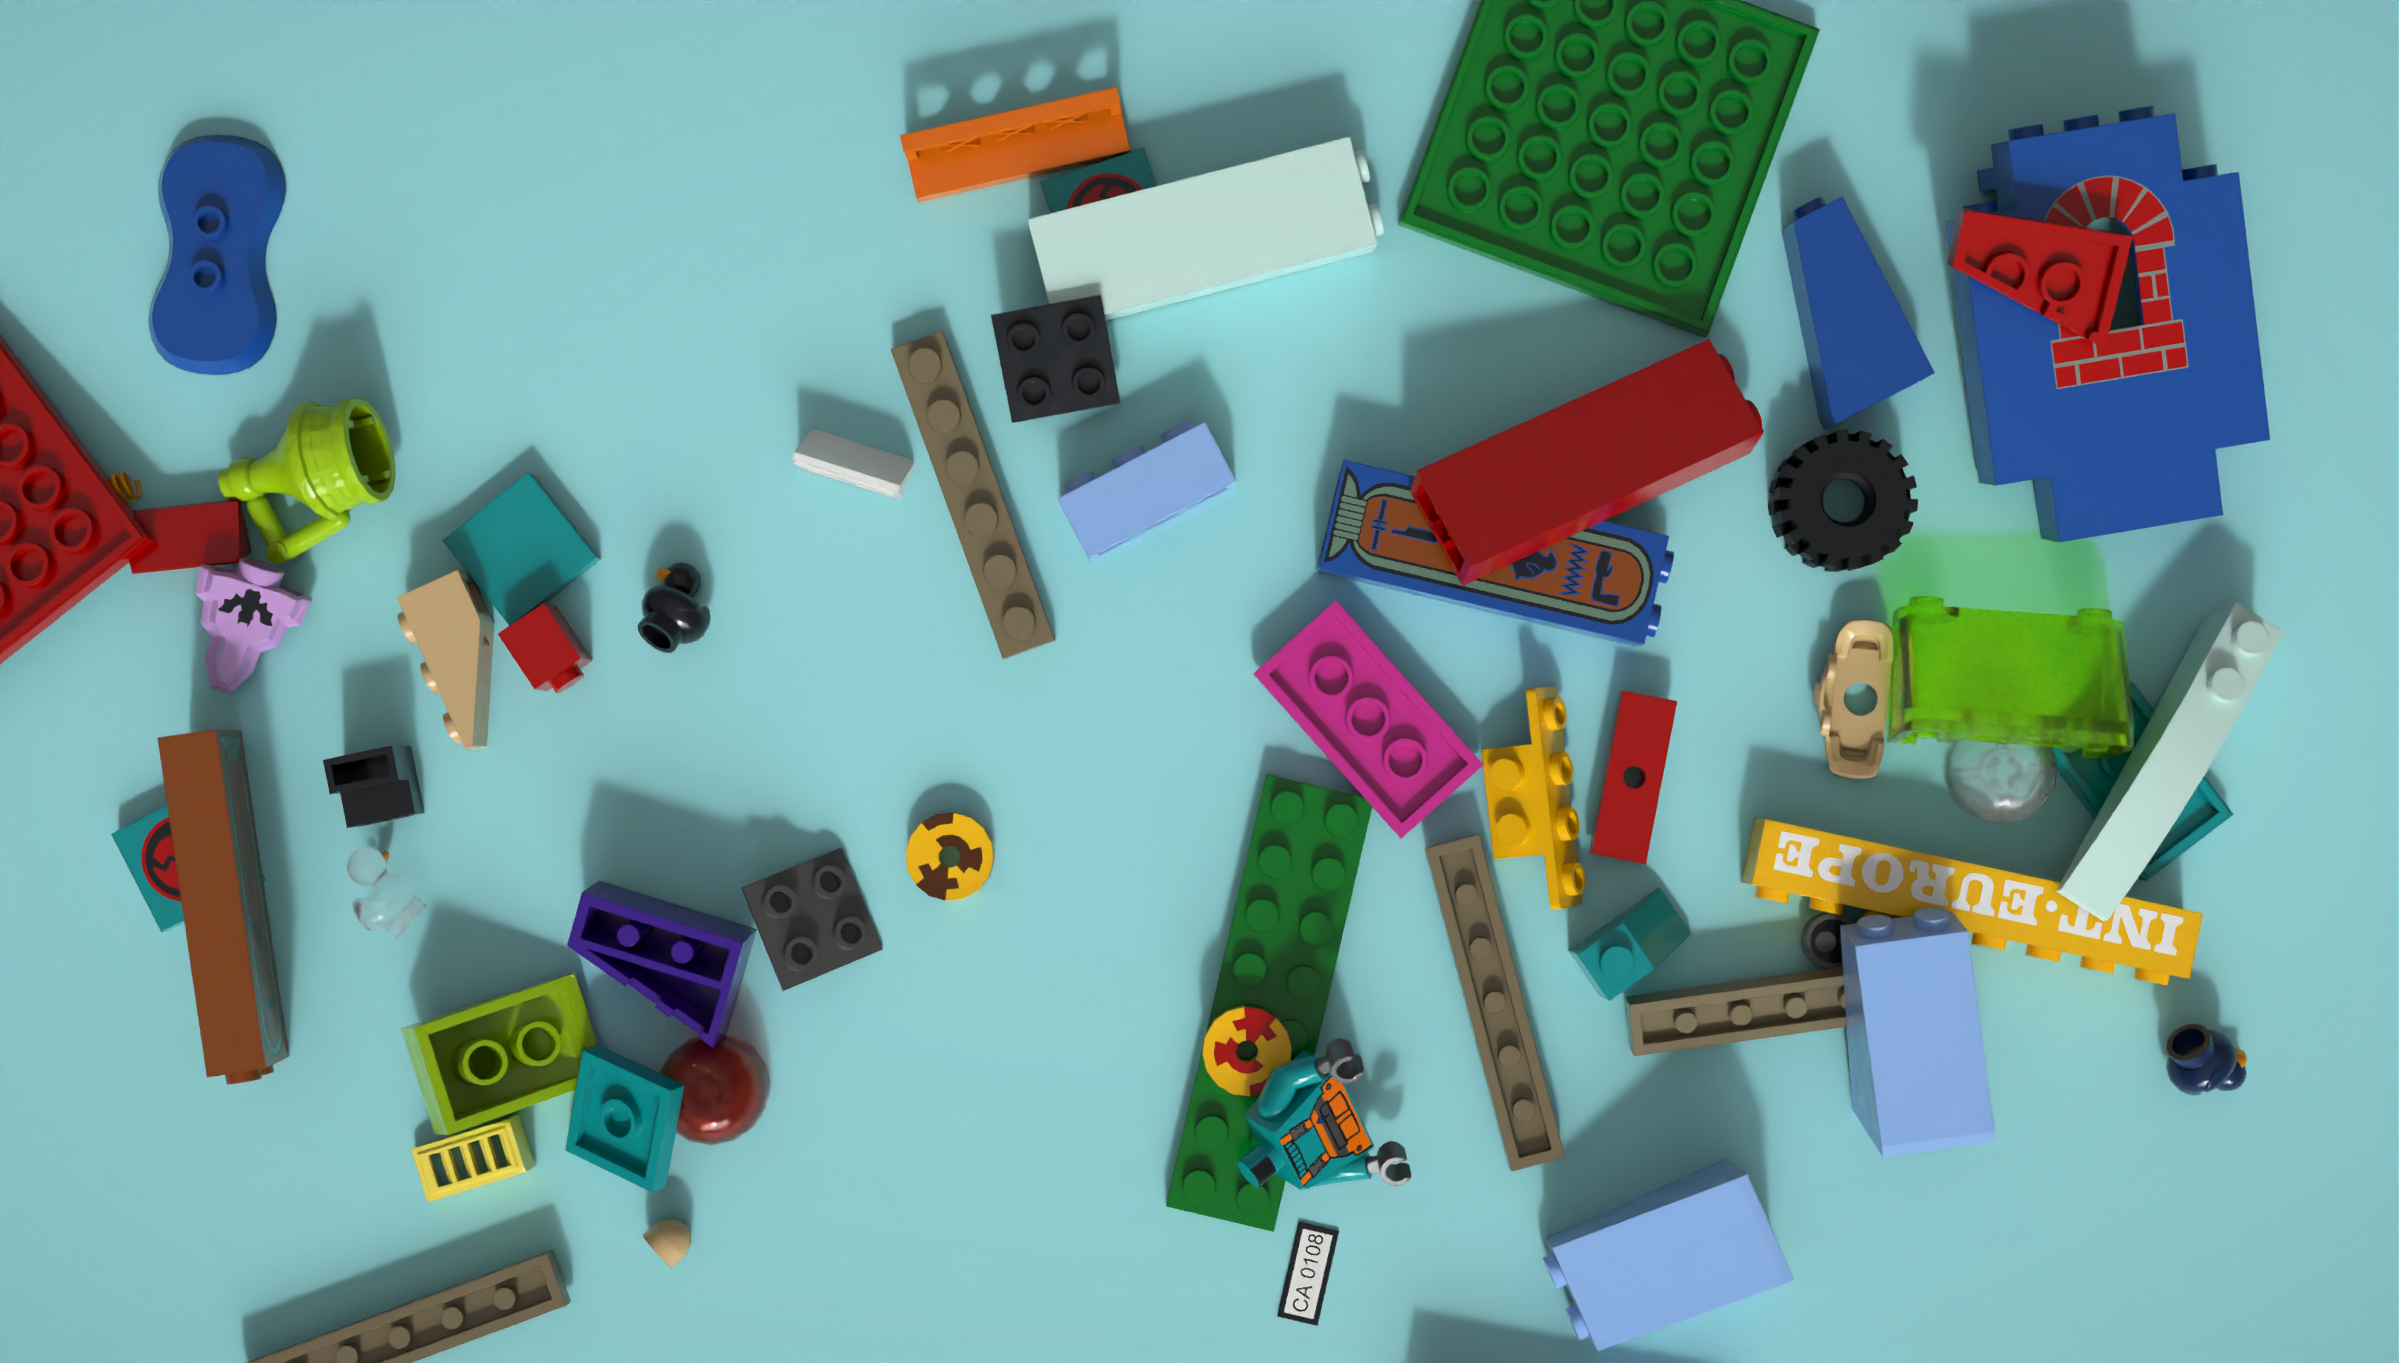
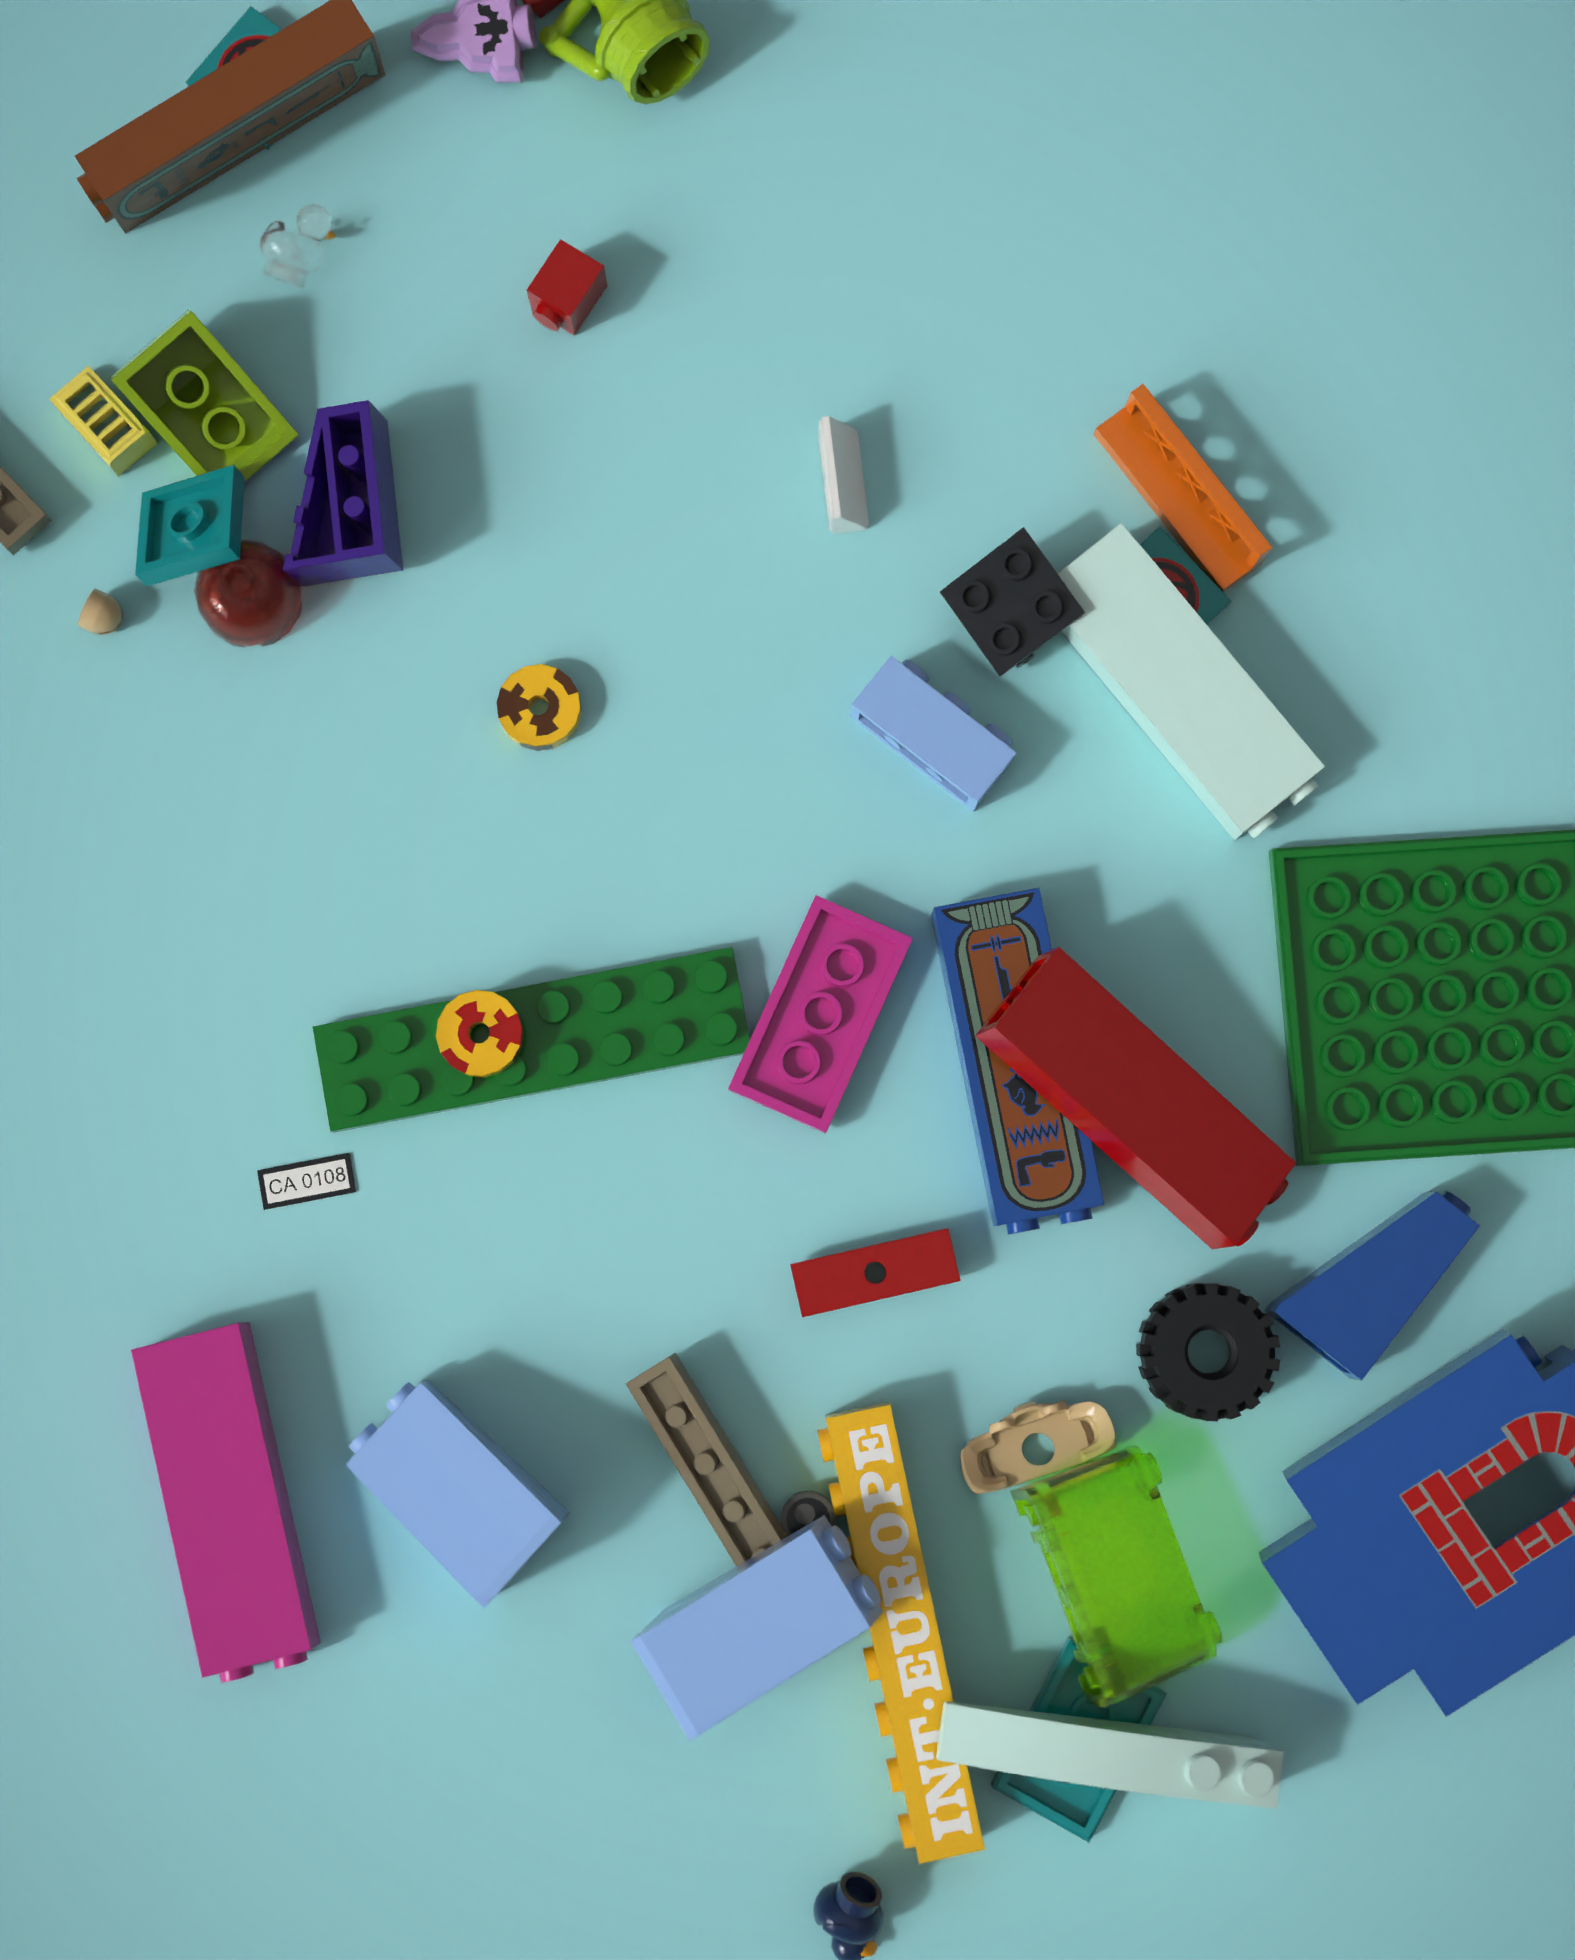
camera: 65 degrees right, 5 degrees down
(375, 785) = (387, 199): black piece -> none
(457, 646) = (542, 208): tan slope -> none
(521, 549) = (643, 233): teal tile -> none
(671, 612) = (645, 377): black animal -> none
(811, 919) = (431, 611): dark grey hinge -> none
(973, 495) = (861, 589): dark tan plate -> none
(1312, 1128) = (435, 1119): torso -> none
(1494, 1002) = (618, 1238): dark tan plate -> none
(1532, 799) = (816, 1192): yellow bracket -> none
(1630, 945) = (725, 1338): teal slope -> none
(1998, 779) = (1023, 1608): clear cylinder -> none
(2046, 266) = (1504, 1429): red wing -> none

